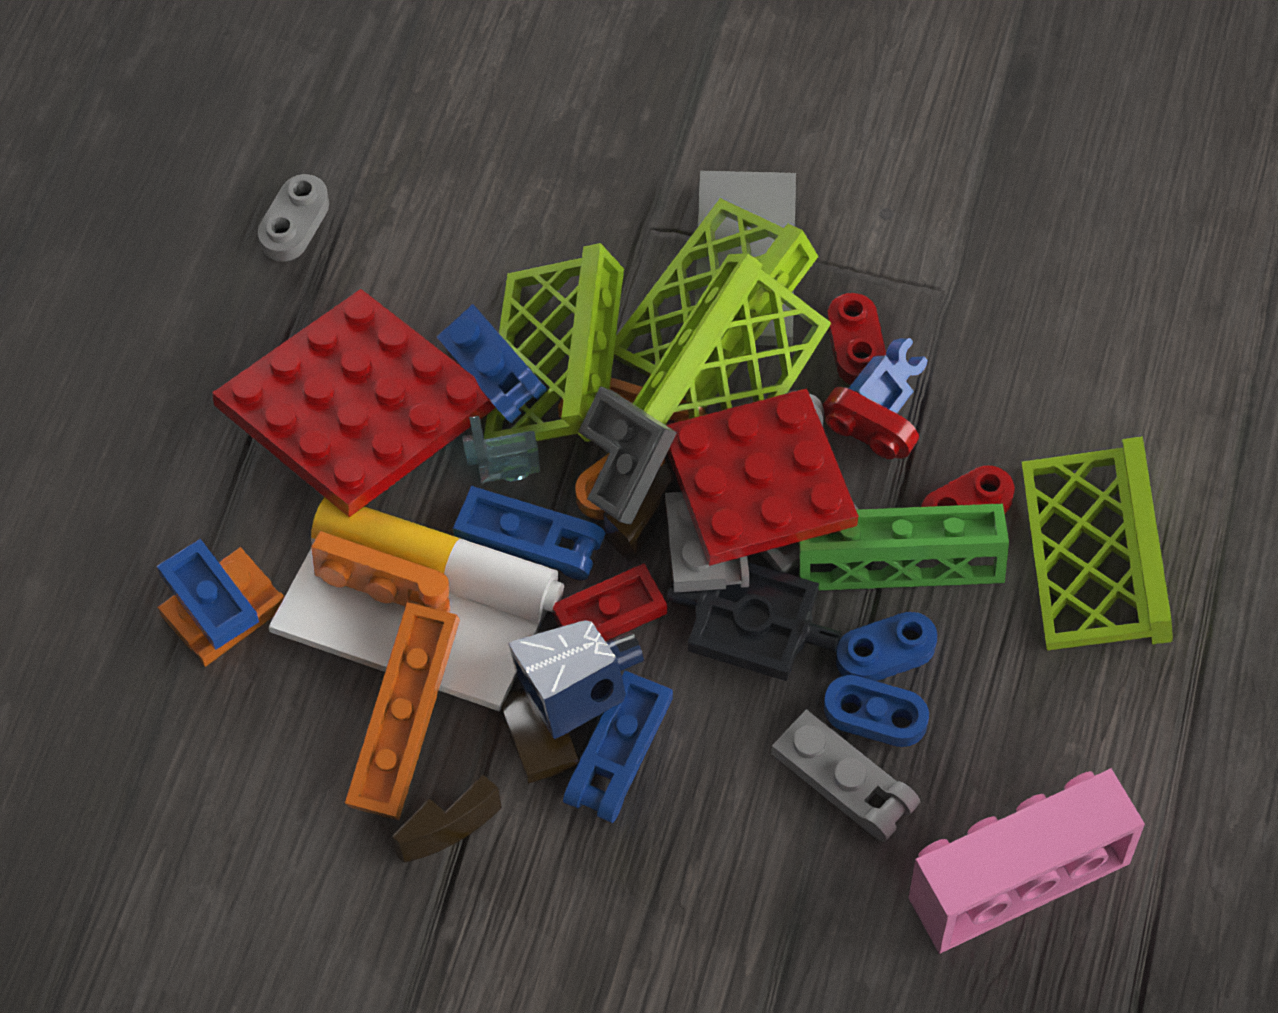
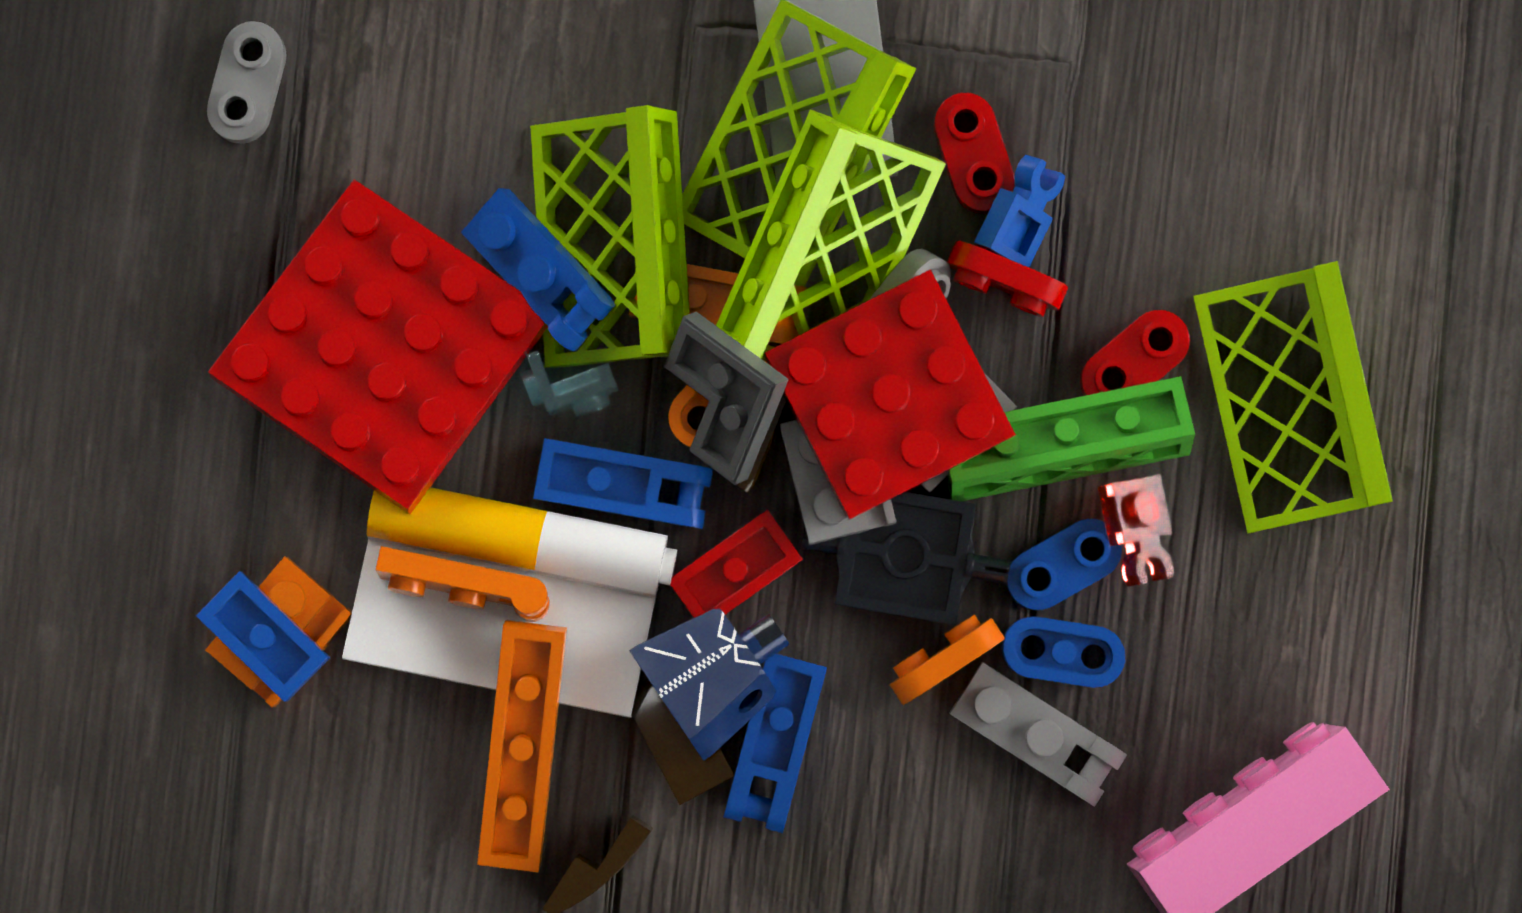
camera: 10 degrees left, 25 degrees up
(787, 696) = (921, 672): none -> orange plate
(954, 616) = (1137, 517): none -> clear red plate

